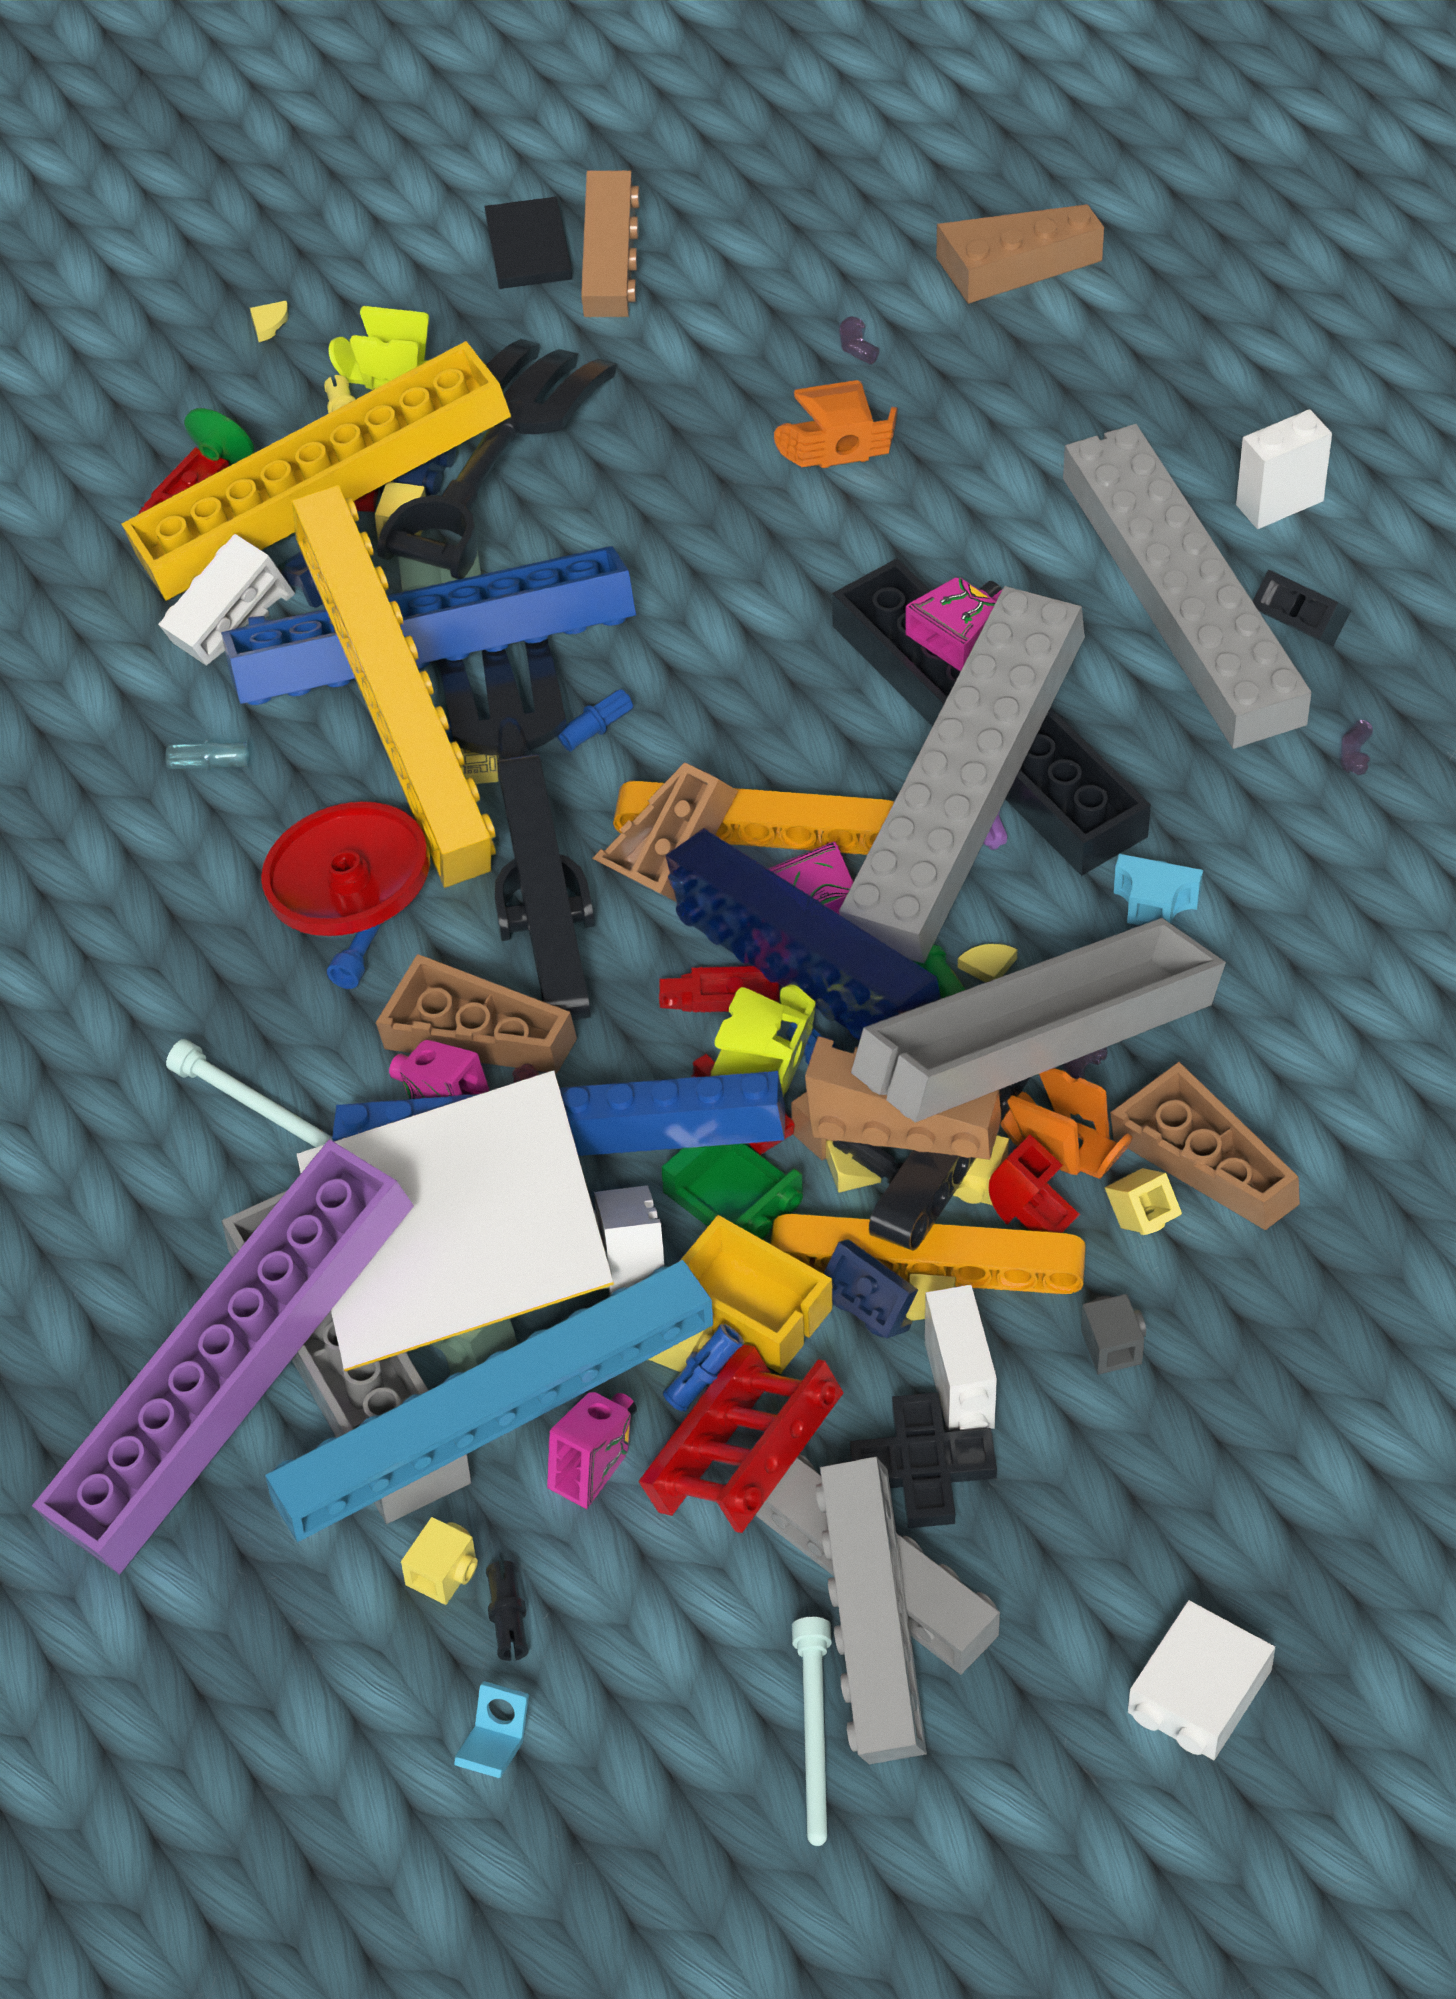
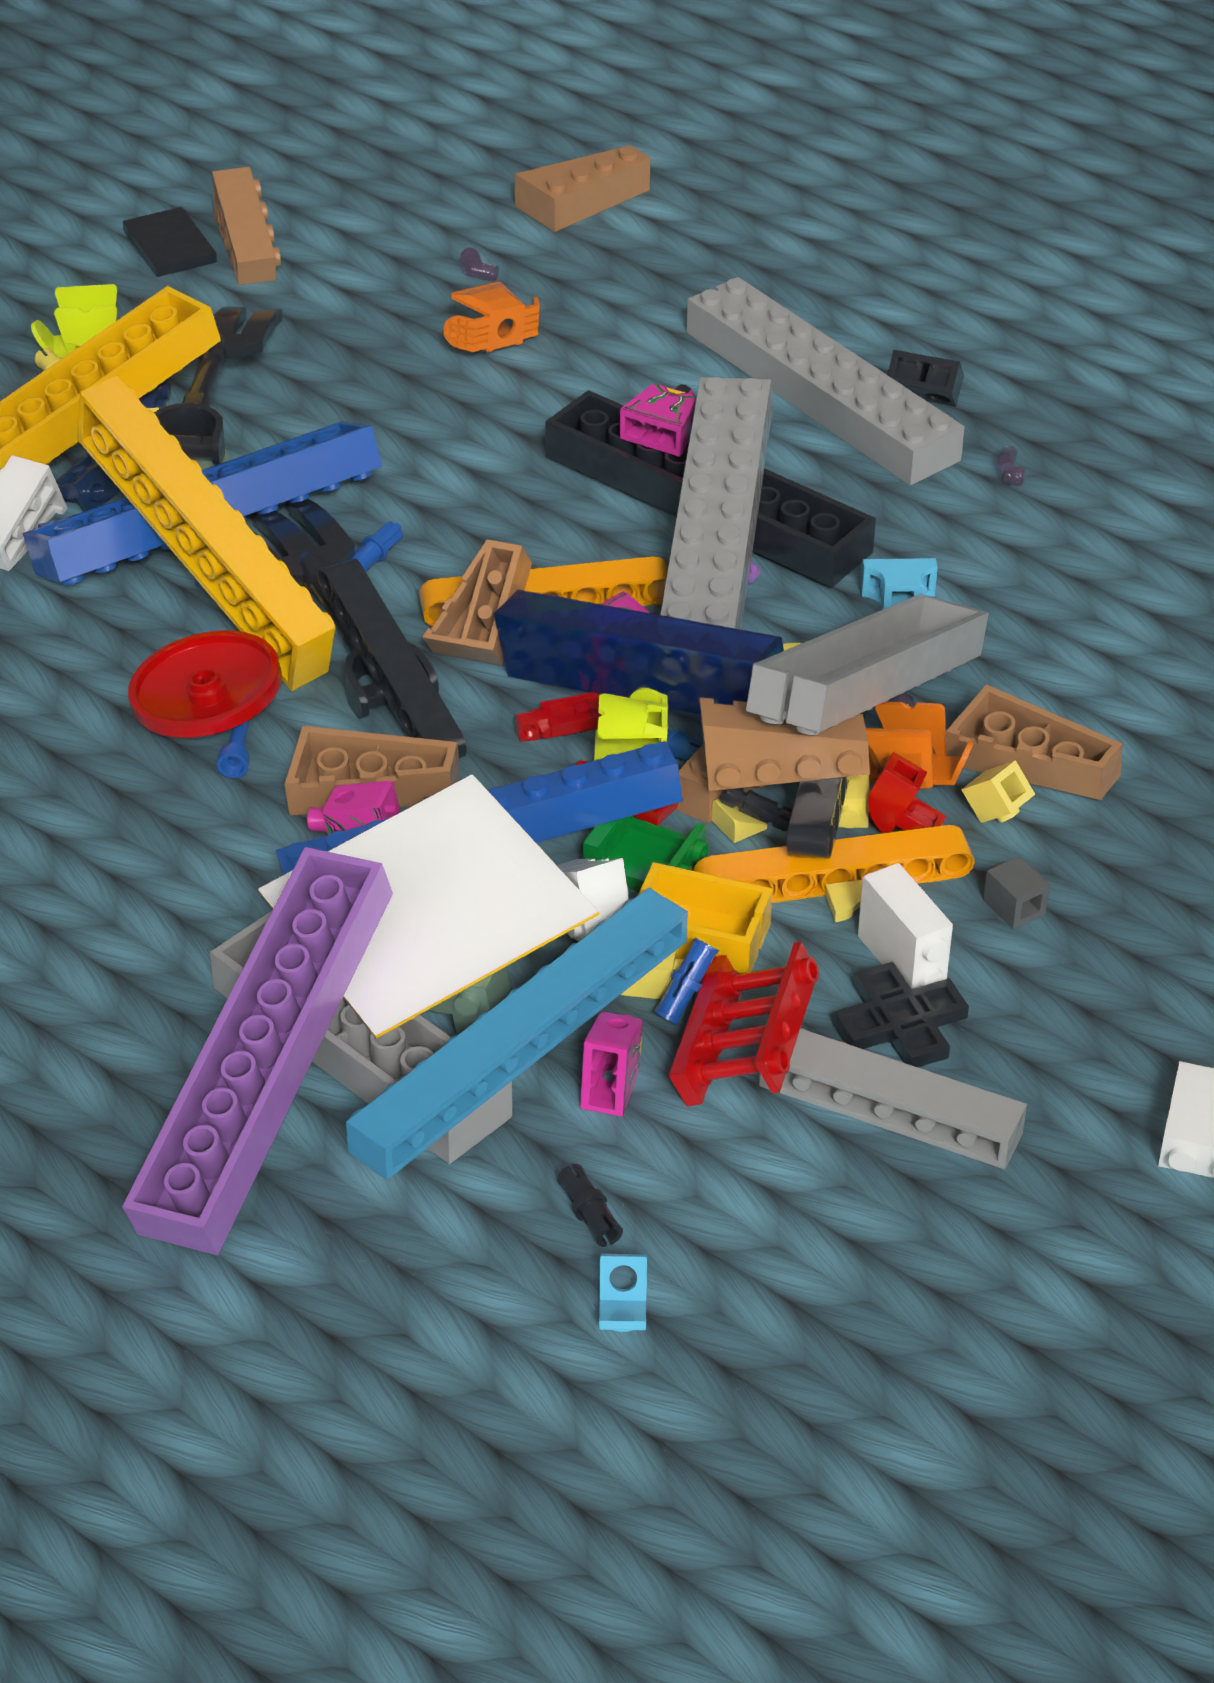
camera: 20 degrees left, 10 degrees down
(187, 1060) = (117, 852): light aqua piece -> none
(208, 755) = (41, 630): clear light blue axle -> none
(440, 1560) = (514, 1178): light yellow brick -> none
(812, 1639) = (870, 1168): light aqua piece -> none
(870, 1290) = (804, 897): dark blue bracket -> none
(871, 1611) = (923, 1124): light grey brick -> none
(1283, 468) = (869, 288): white brick -> none

